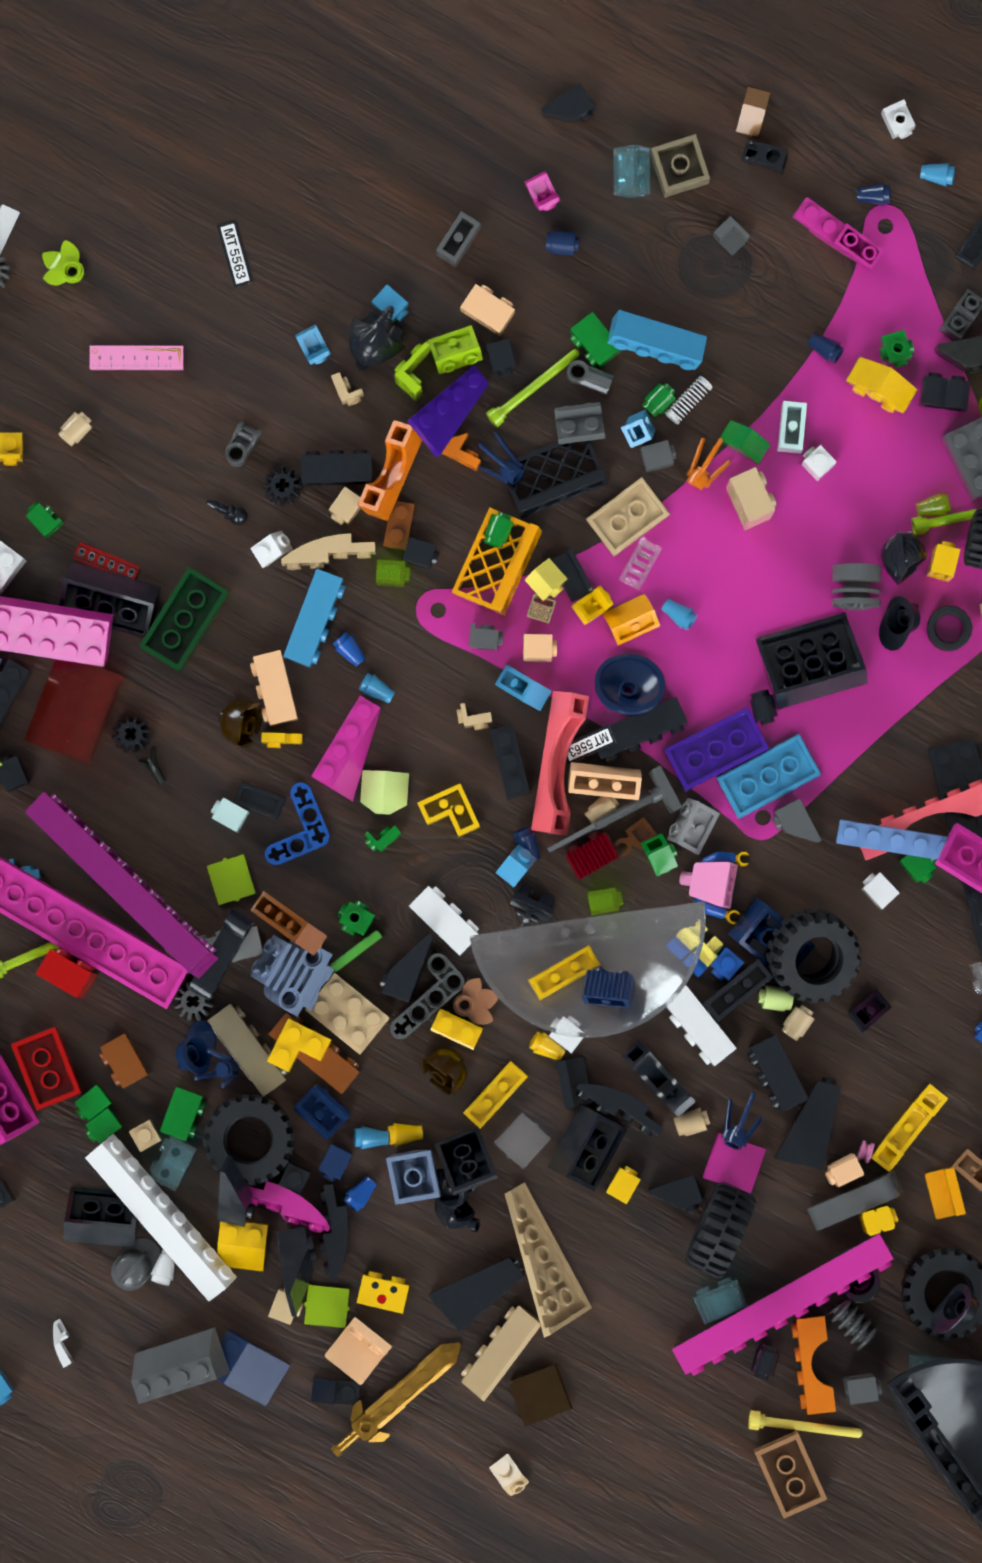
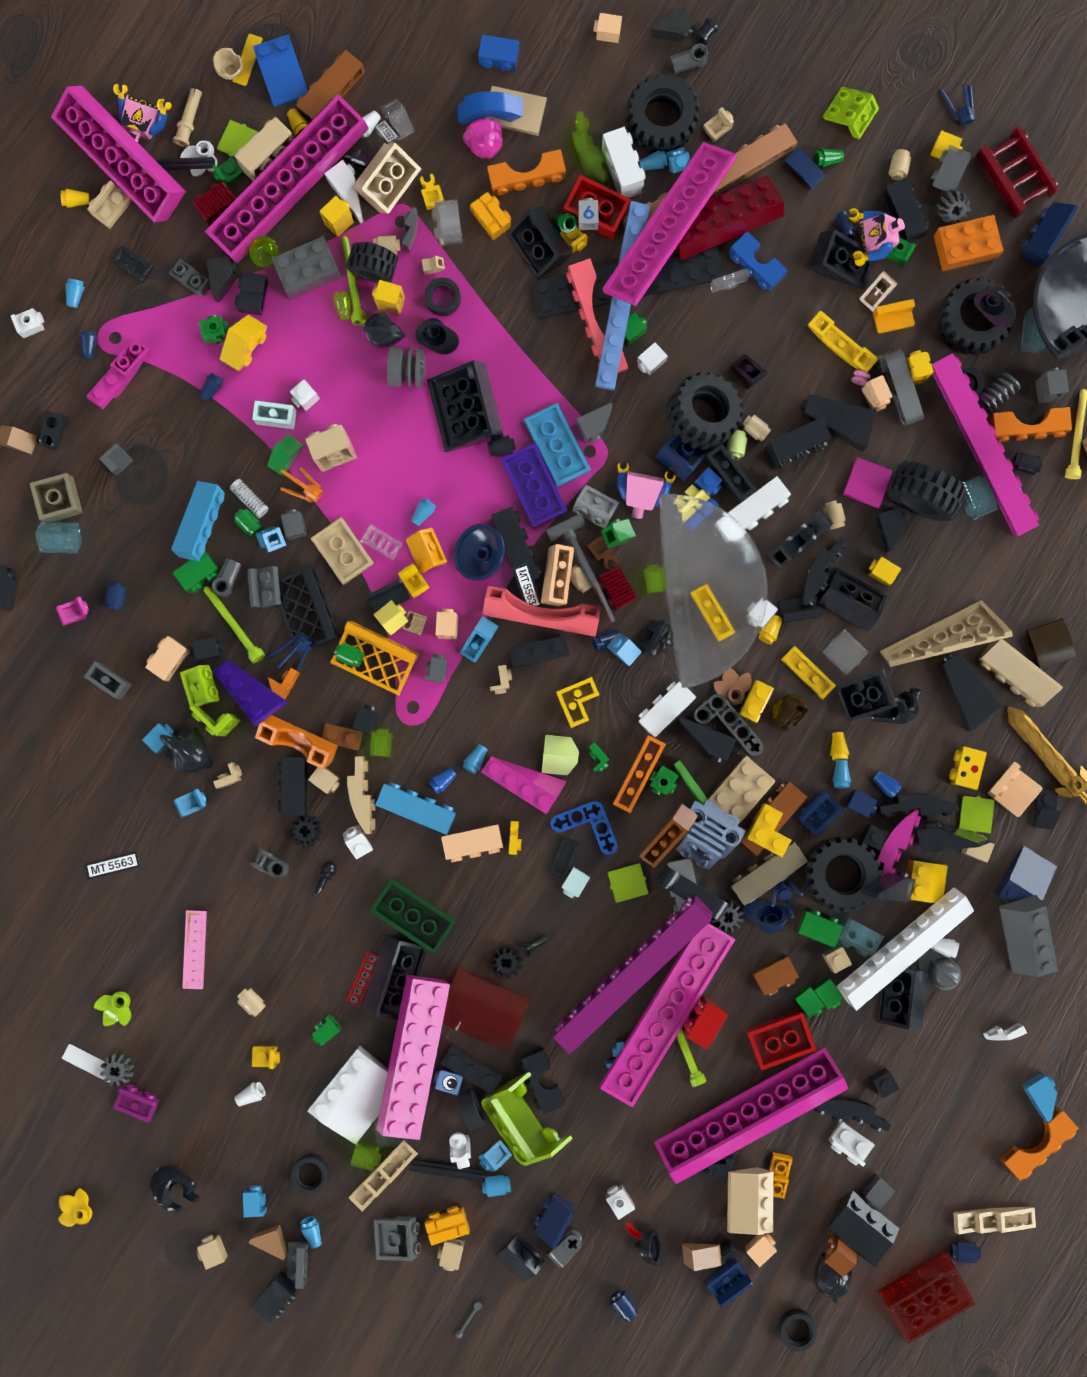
camera: 85 degrees left, 0 degrees up
(240, 721) = (499, 872): dark brown cylinder -> none
(363, 887) = (638, 774): none -> orange brick
(413, 1176) = (875, 740): sand blue slope -> none
(608, 988) = (727, 576): dark blue brick -> none
(735, 1136) = (847, 477): dark blue plant -> none

